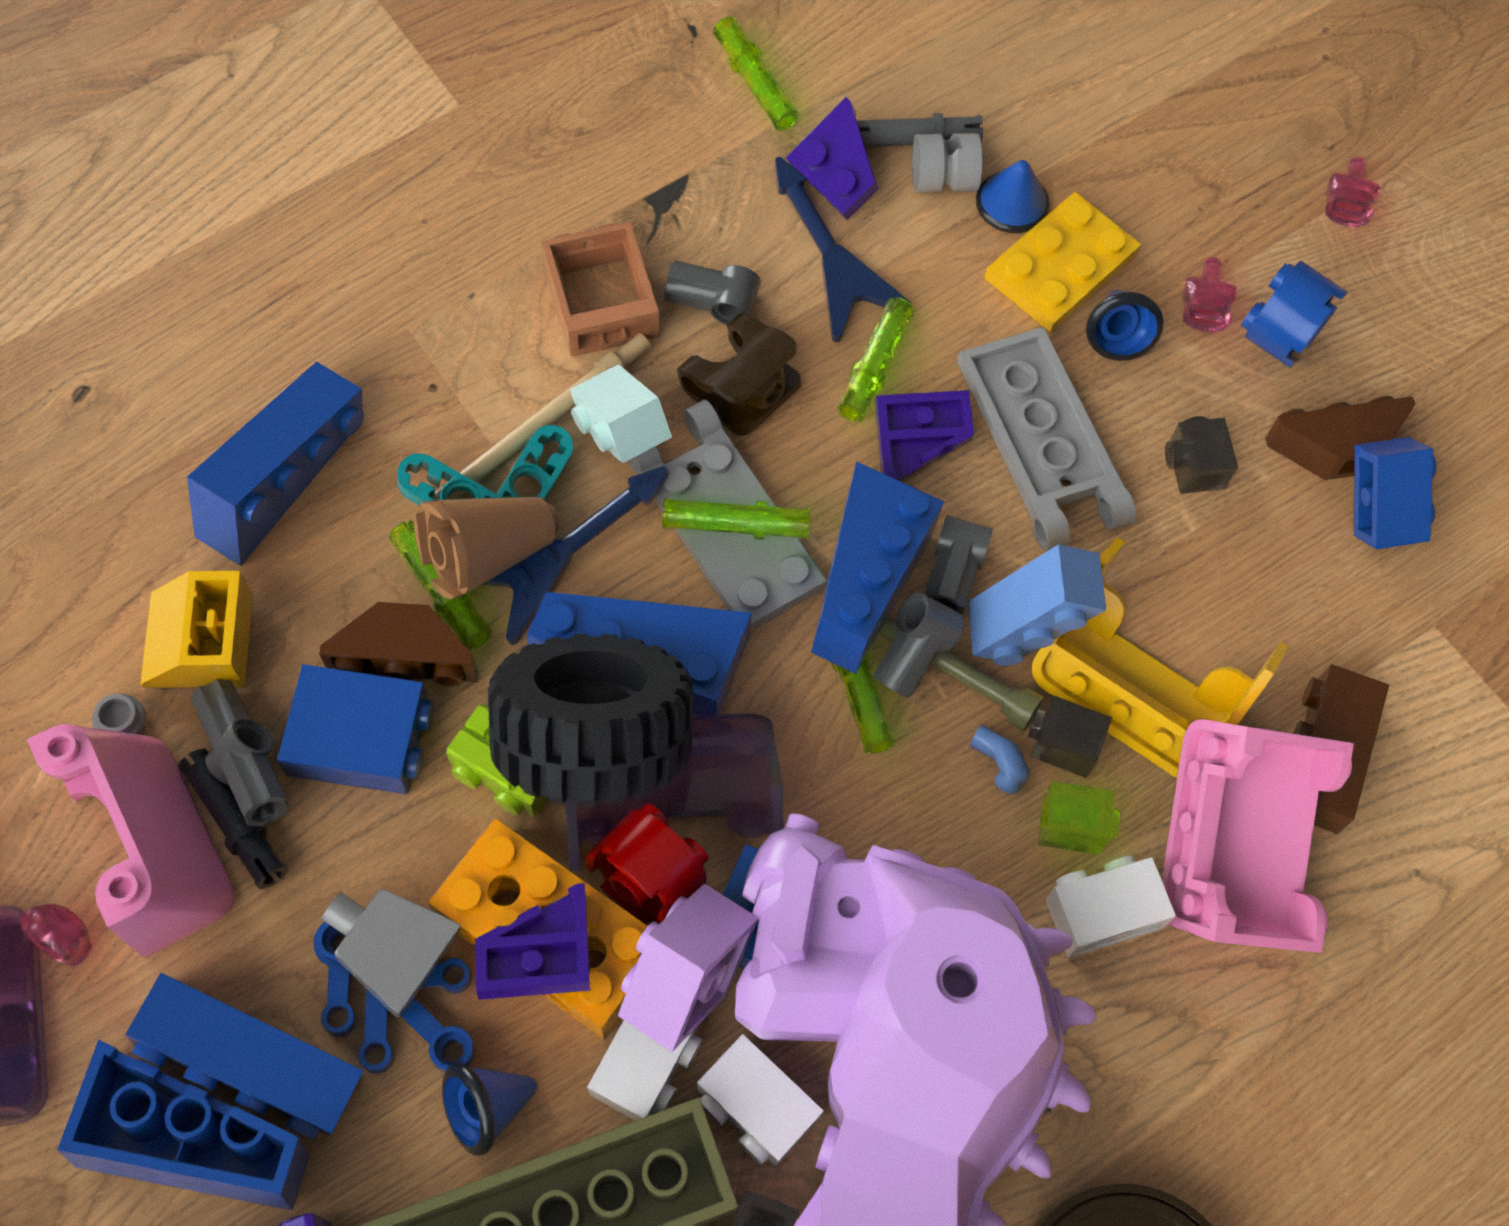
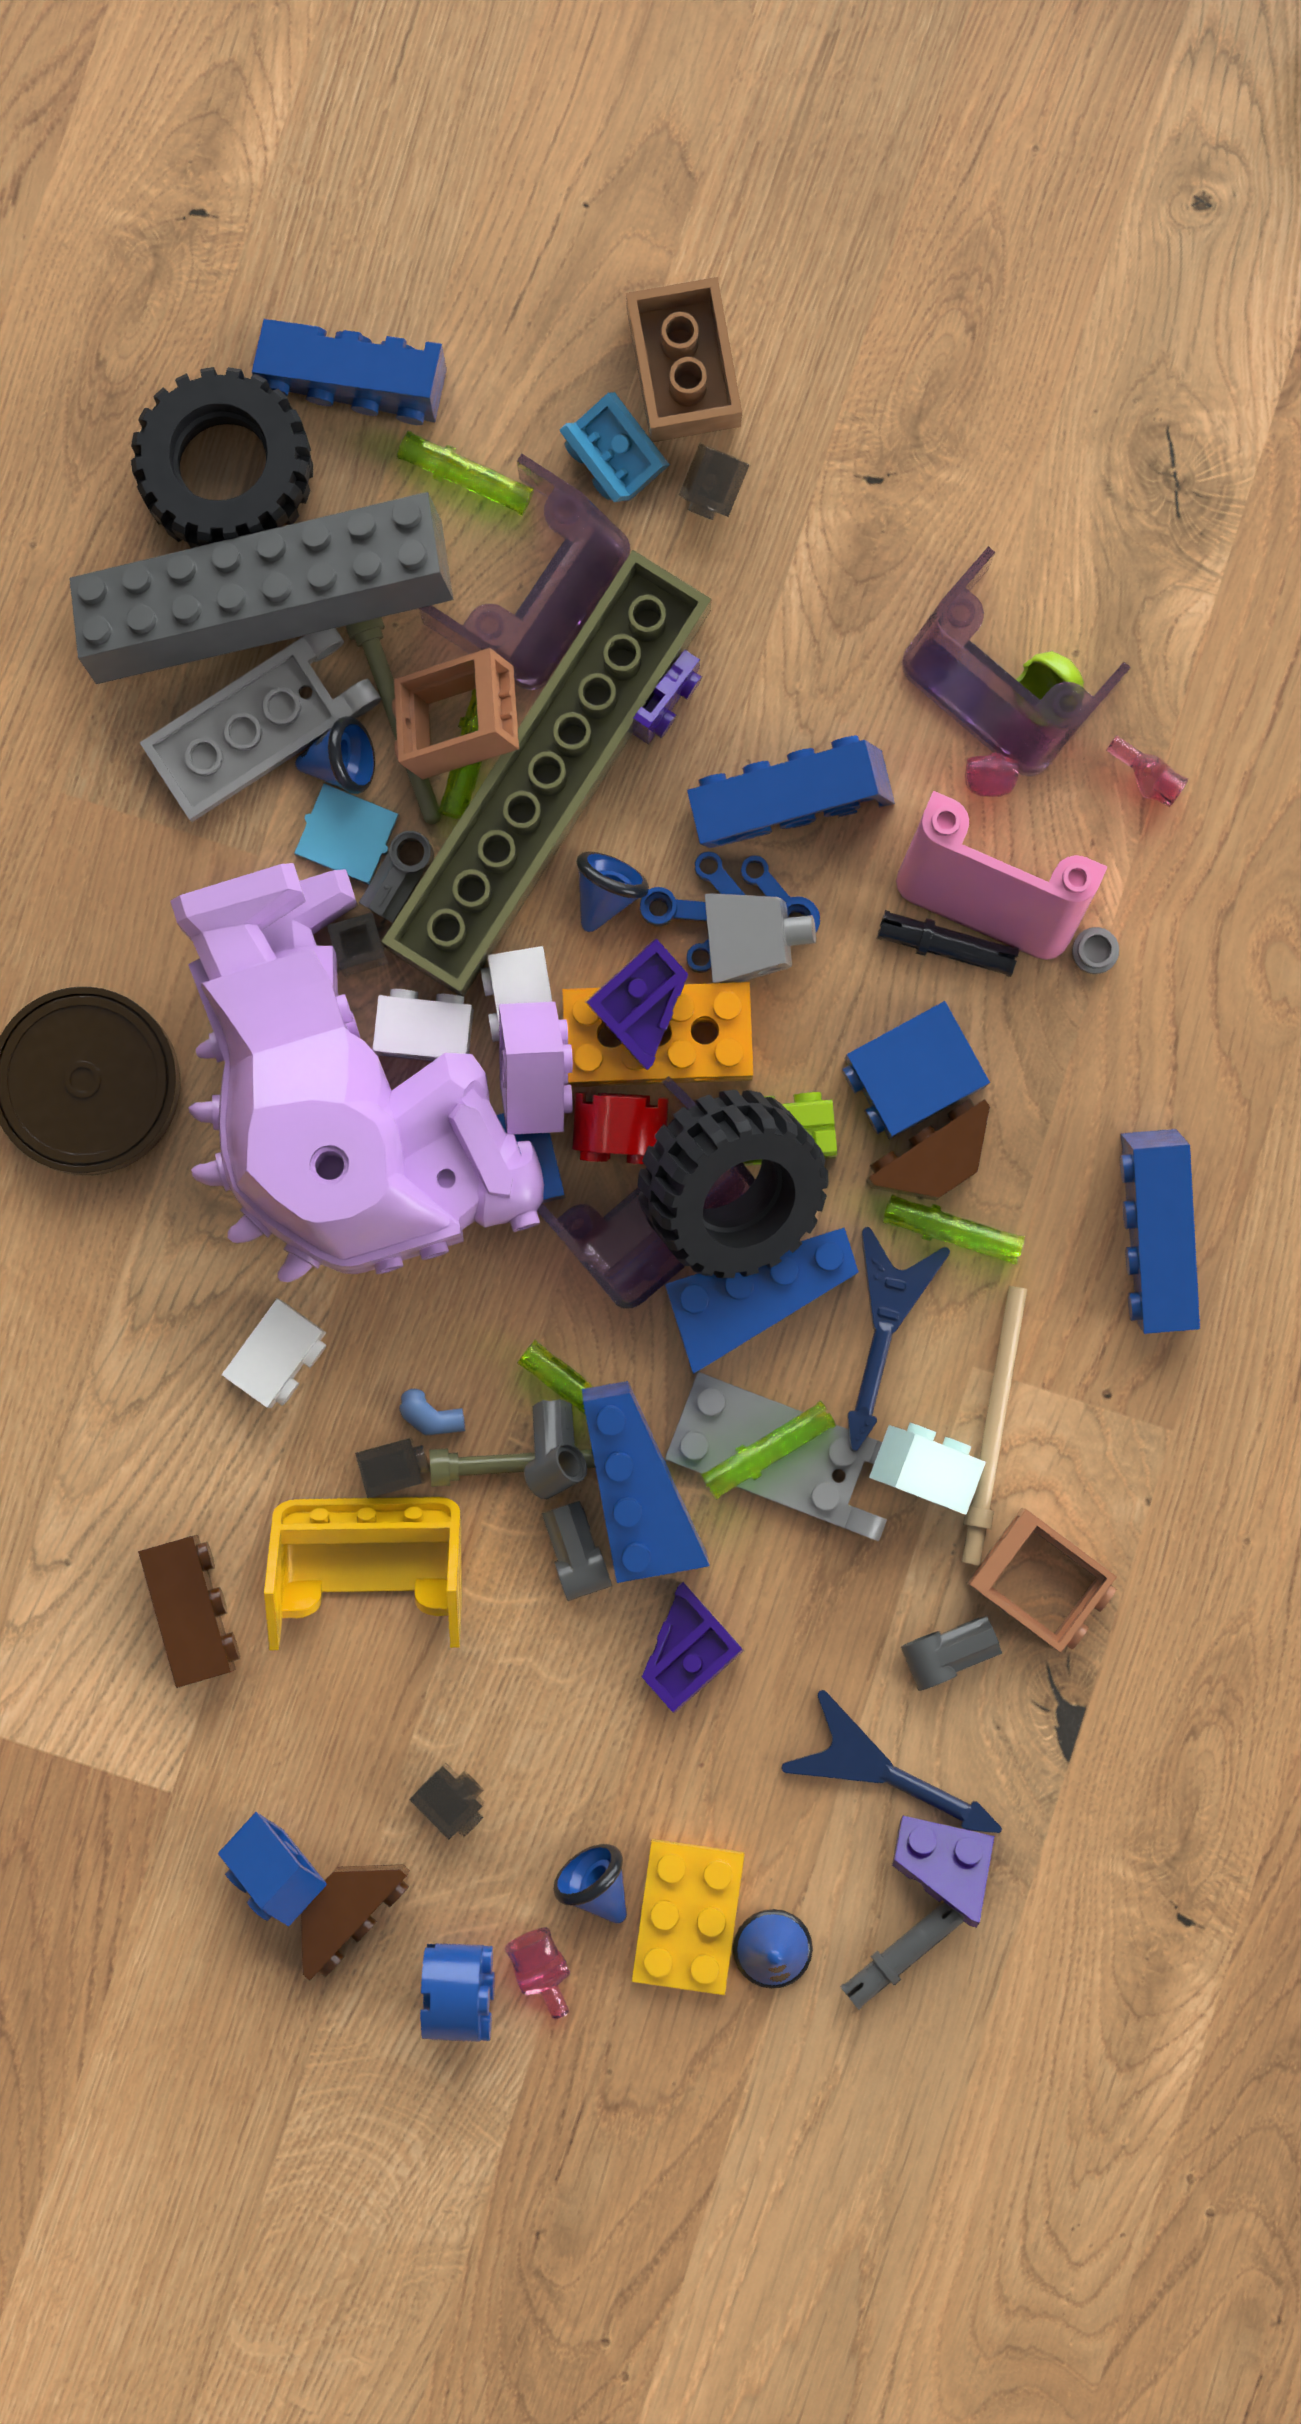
camera: 150 degrees right, 20 degrees up
(175, 1135) = (788, 715): blue wedge -> none
(198, 631) = (1094, 1050): yellow slope -> none
(239, 752) = (981, 989): dark grey piece -> none
(459, 482) = (970, 1320): teal beam -> none
(480, 538) = (938, 1276): medium nougat cone -> none
(746, 60) = (1087, 1906): clear neon green pin -> none
(751, 382) = (850, 1588): dark brown piece -> none
(869, 373) = (768, 1680): clear neon green pin -> none
(946, 162) = (860, 1917): light grey wheel -> none
(1036, 604) = (480, 1535): medium blue brick -> none
(1043, 433) = (592, 1727): light grey hinge -> none
(1077, 818) = (340, 1402): clear neon green brick -> none
(1247, 834) = (205, 1473): bright pink windscreen -> none
(1351, 195) = (485, 2180): clear pink piece -> none

